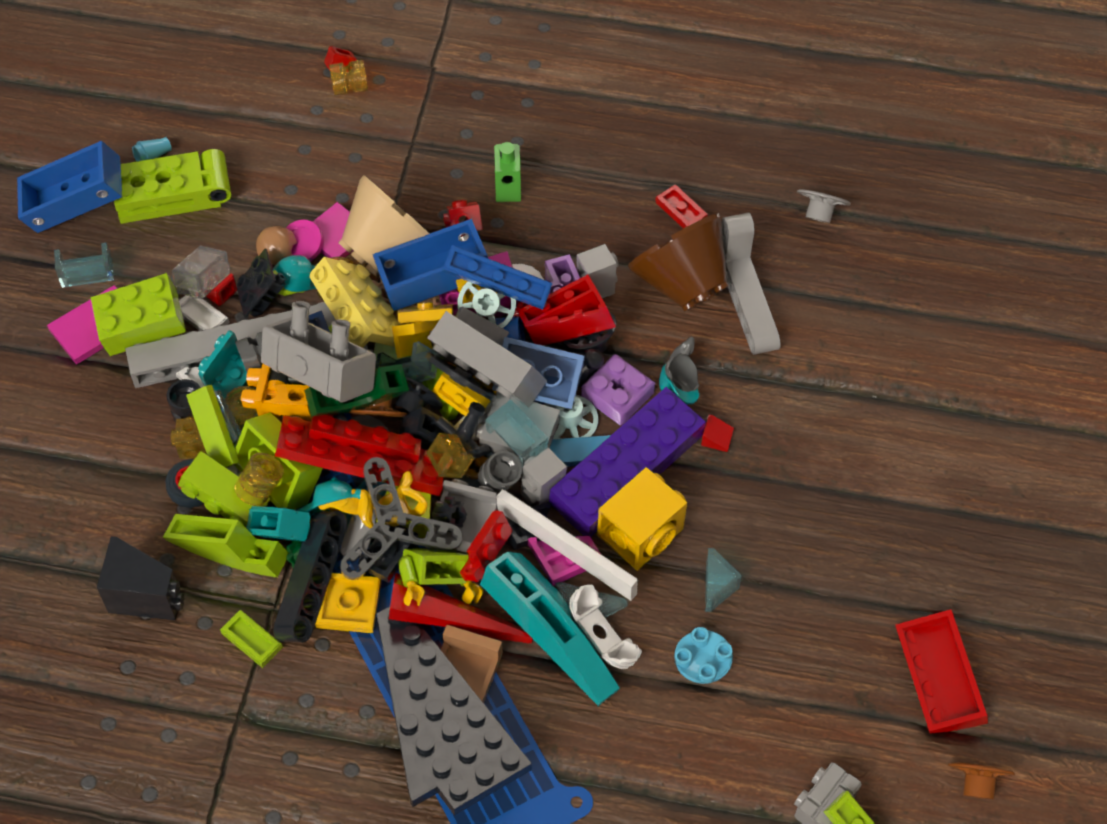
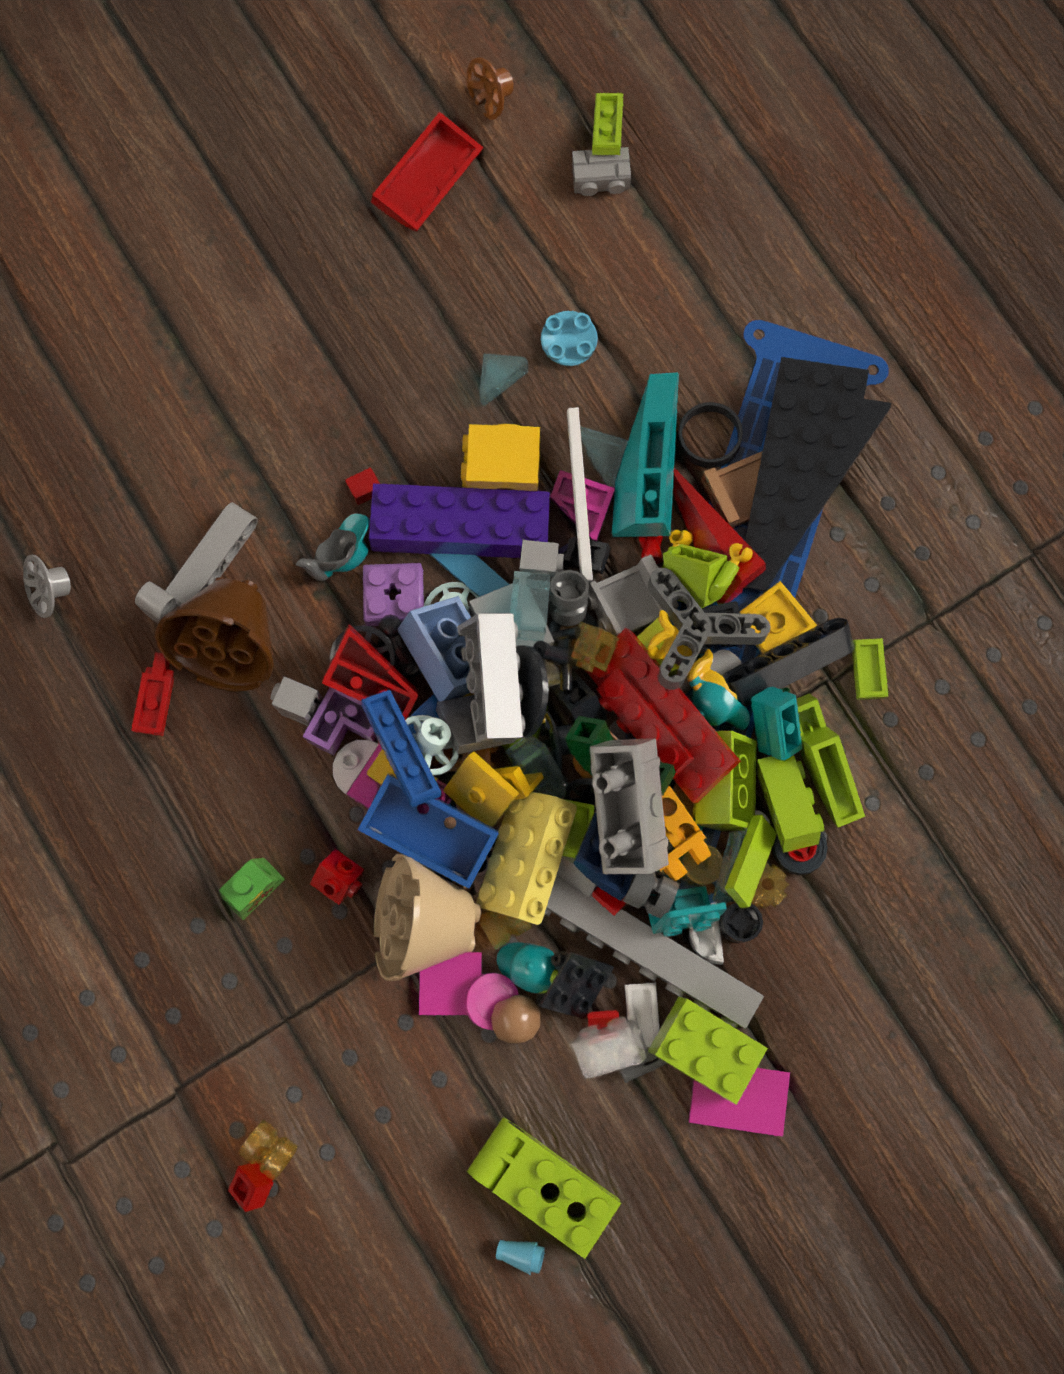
camera: 130 degrees left, 20 degrees up
(69, 187) = (672, 1279): blue piece -> none
(84, 270) = (698, 1171): clear light blue panel -> none
(138, 584) = (923, 783): black slope -> none
(258, 479) = (762, 767): clear yellow wheel -> none
(450, 512) = (638, 608): black gear -> none
(486, 546) = (644, 549): red hinge -> none
(534, 659) = (710, 407): none -> black tyre
(585, 611) = (624, 398): white piece -> none

